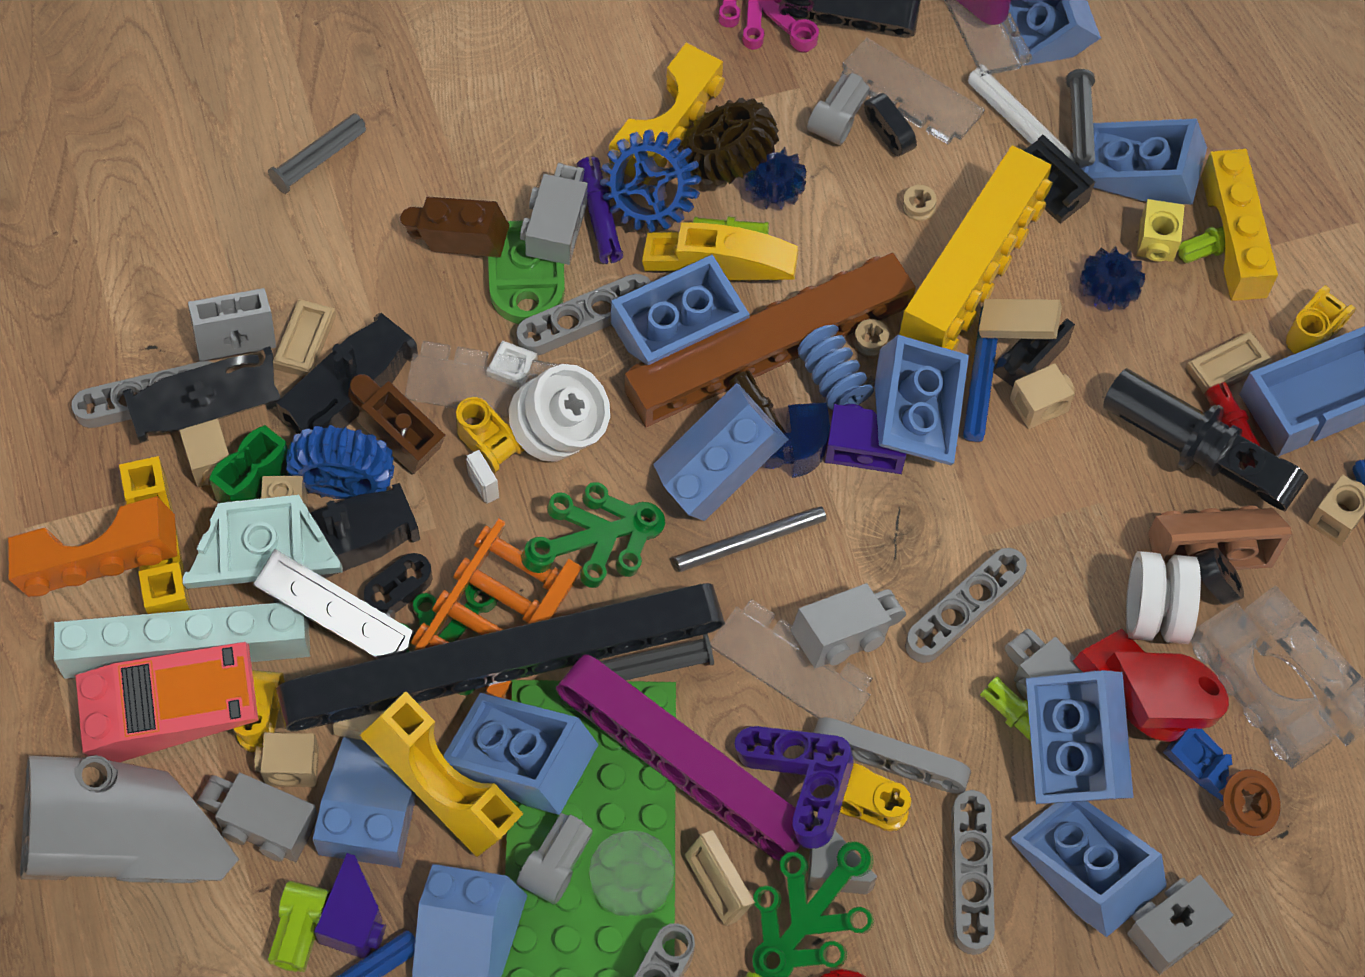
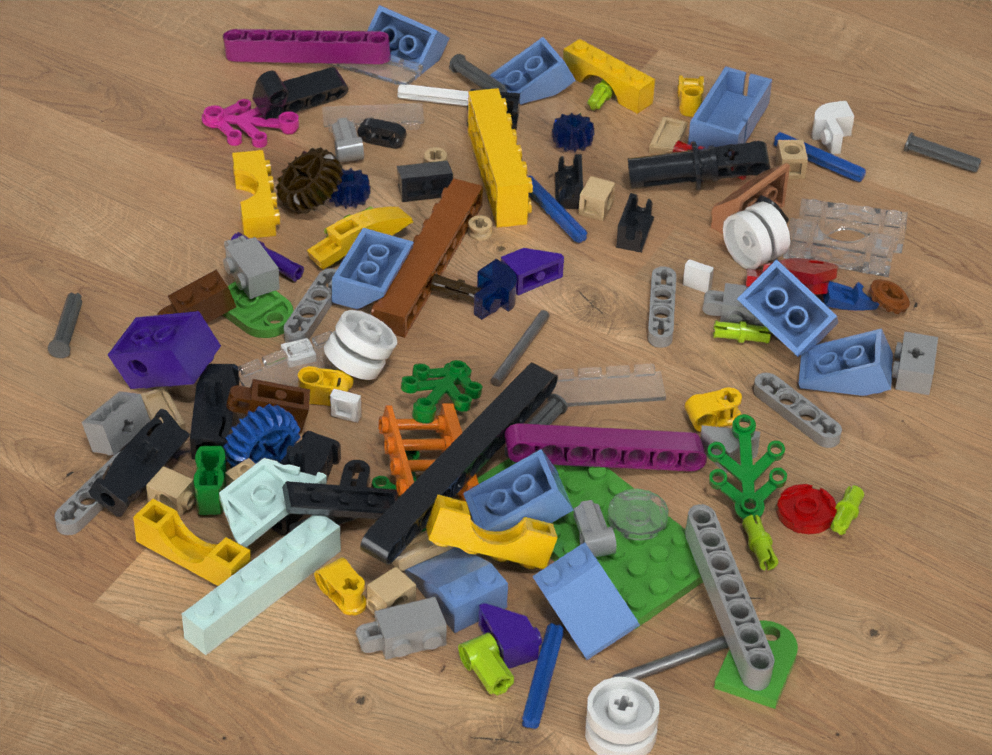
camera: 40 degrees left, 20 degrees down
(127, 828) = (310, 691): light grey panel -> none
(137, 537) = (137, 597): orange arch -> none
(165, 701) = (290, 610): slope -> none
(349, 271) = (164, 350): none -> dark purple piece
(621, 191) = (295, 226): blue gear -> none
(719, 453) = (465, 310): medium blue slope -> none
(719, 878) = (681, 489): tan tile -> none
(812, 764) = (680, 402): dark purple beam -> none
(832, 367) = (477, 248): medium blue piece -> none
(845, 624) = (615, 346): light grey brick -> none
(870, 225) = (424, 180): none -> black hinge
(899, 757) = (671, 394): light grey beam -> none
(920, 398) = (539, 226): medium blue slope -> none
(1020, 318) = (552, 167): tan tile -> none
(1047, 596) = (698, 276): none -> white tile
(1049, 466) = (634, 225): none -> black hinge
(1161, 218) = (572, 98): light yellow brick -> none

